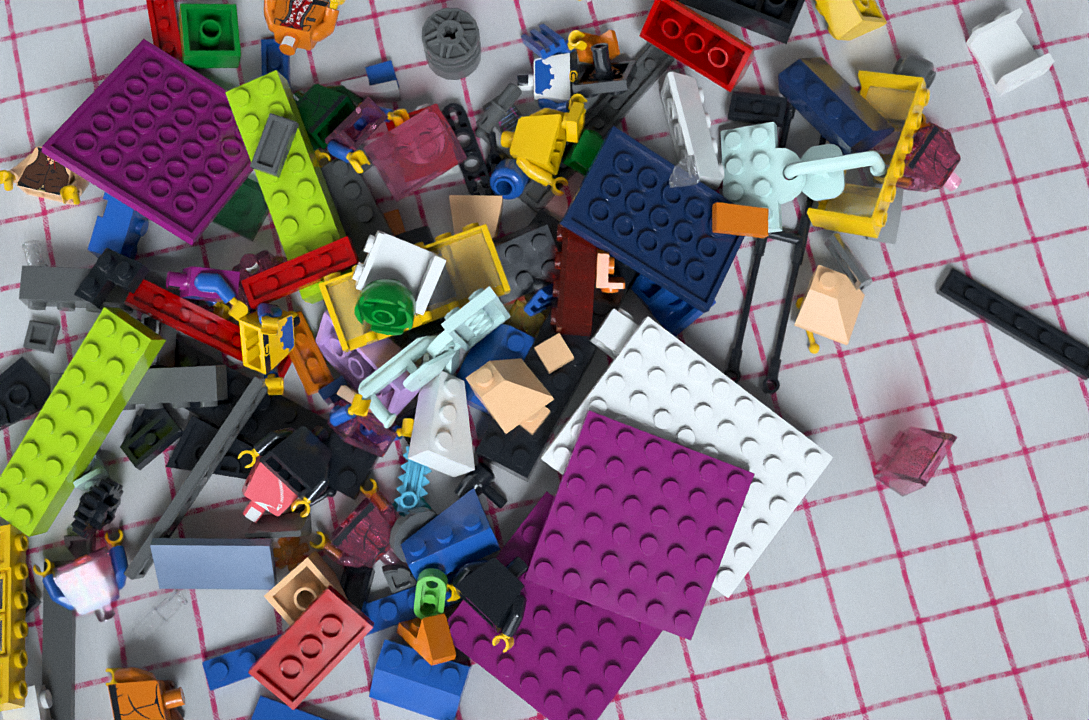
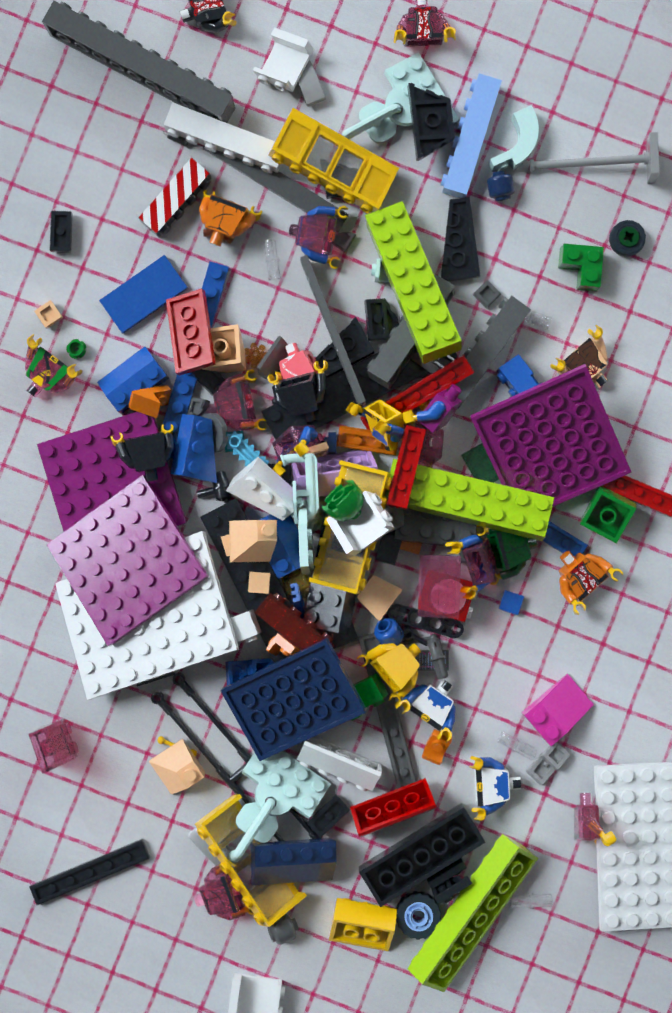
camera: 125 degrees right, 10 degrees up
(97, 508) = (355, 263): black gear -> none
(107, 272) = (489, 358): black plate -> none
(214, 563) = (277, 308): tile -> none
(274, 145) = (496, 503): dark grey tile -> none
(379, 93) = (509, 584): light grey slope -> none
(430, 593) = (172, 417): bright green plate -> none
(449, 57) = (491, 650): dark grey wheel -> none
(547, 38) = (471, 716): blue tile -> none
(574, 122) = (391, 694): yellow plate -> none
(604, 75) = (411, 736): black plate -> none
(685, 173) = (310, 736): clear tile -> none
(739, 220) = (261, 749): orange tile -> none
(848, 261) = (193, 797): dark grey slope -> none

